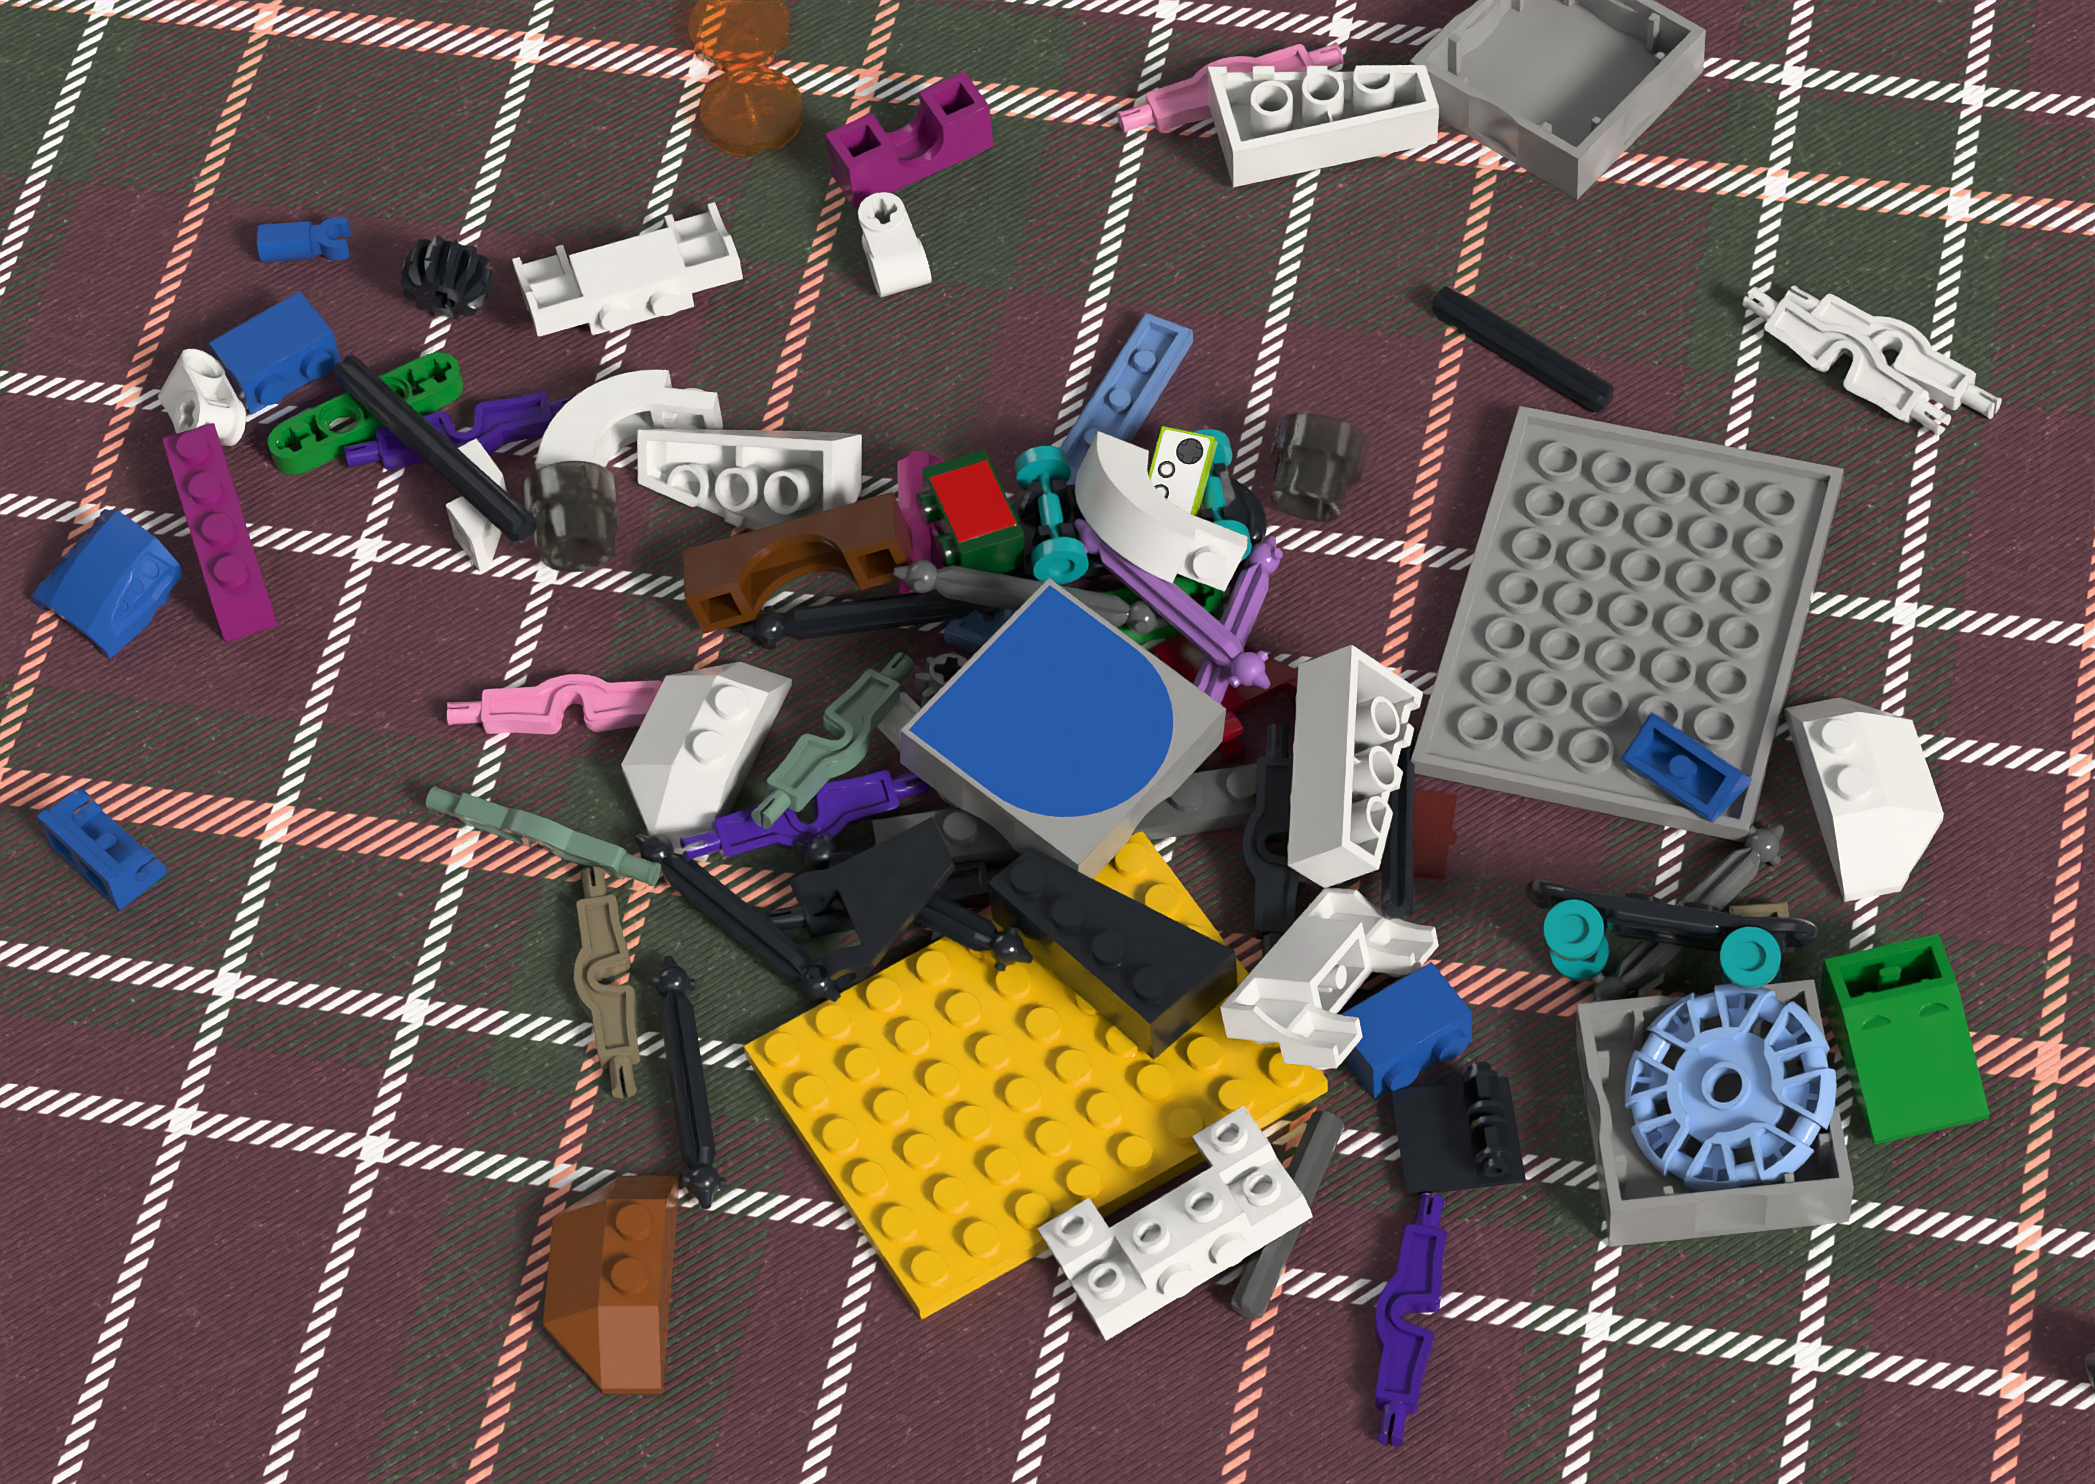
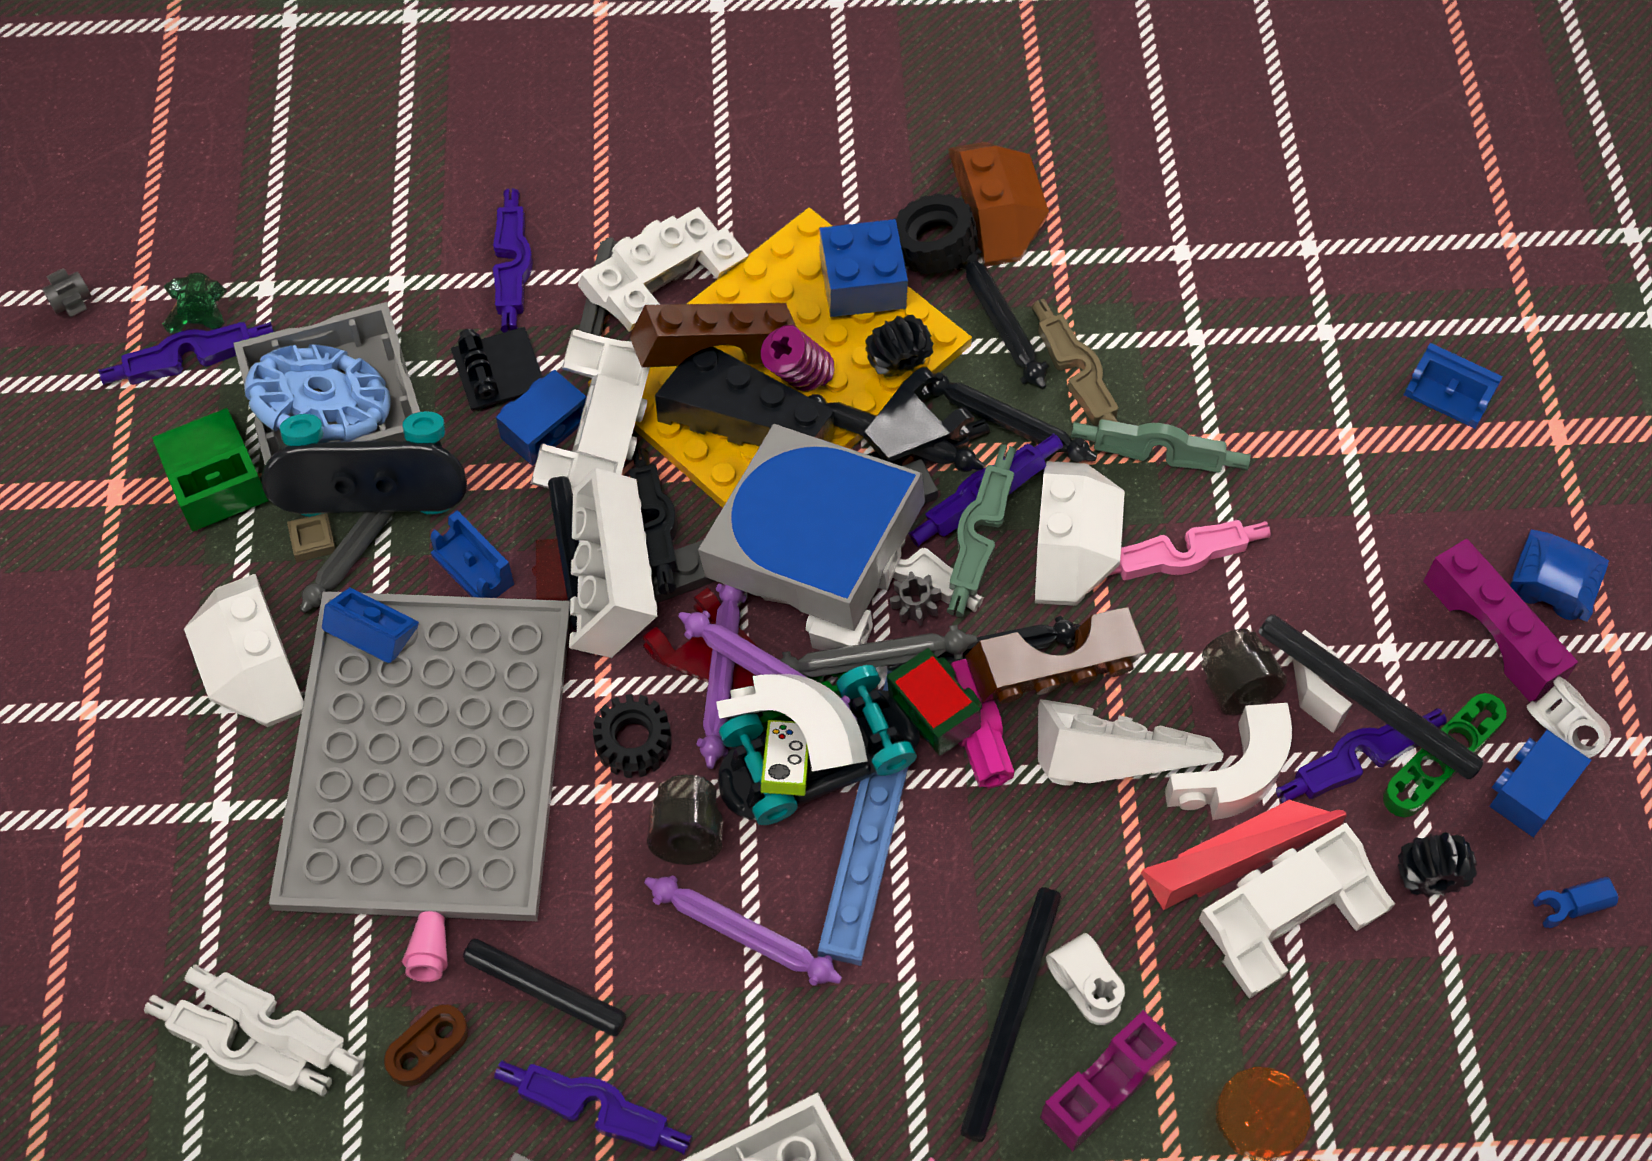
camera: 160 degrees right, 5 degrees up
(682, 333) = (1239, 851): none -> coral wedge
(751, 1159) = (944, 252): none -> black tyre
(862, 985) = (899, 346): none -> black gear
(873, 1133) = (863, 268): none -> blue brick
(987, 243) = (1010, 1015): none -> black axle
(1016, 979) = (797, 359): none -> magenta piece
(1182, 991) = (675, 331): none -> reddish brown arch
(1274, 364) = (743, 930): none -> medium lavender wheel
(1368, 617) = (636, 758): none -> black tyre
(1508, 244) = (616, 1116): none -> dark purple piece
(1532, 842) = (471, 559): none -> blue hinge
(1656, 396) = (427, 948): none -> bright pink cone
(1664, 308) = (423, 1043): none -> reddish brown plate
(1915, 1307) = (194, 303): none -> clear green rock
(1967, 1246) = (166, 357): none -> dark purple piece

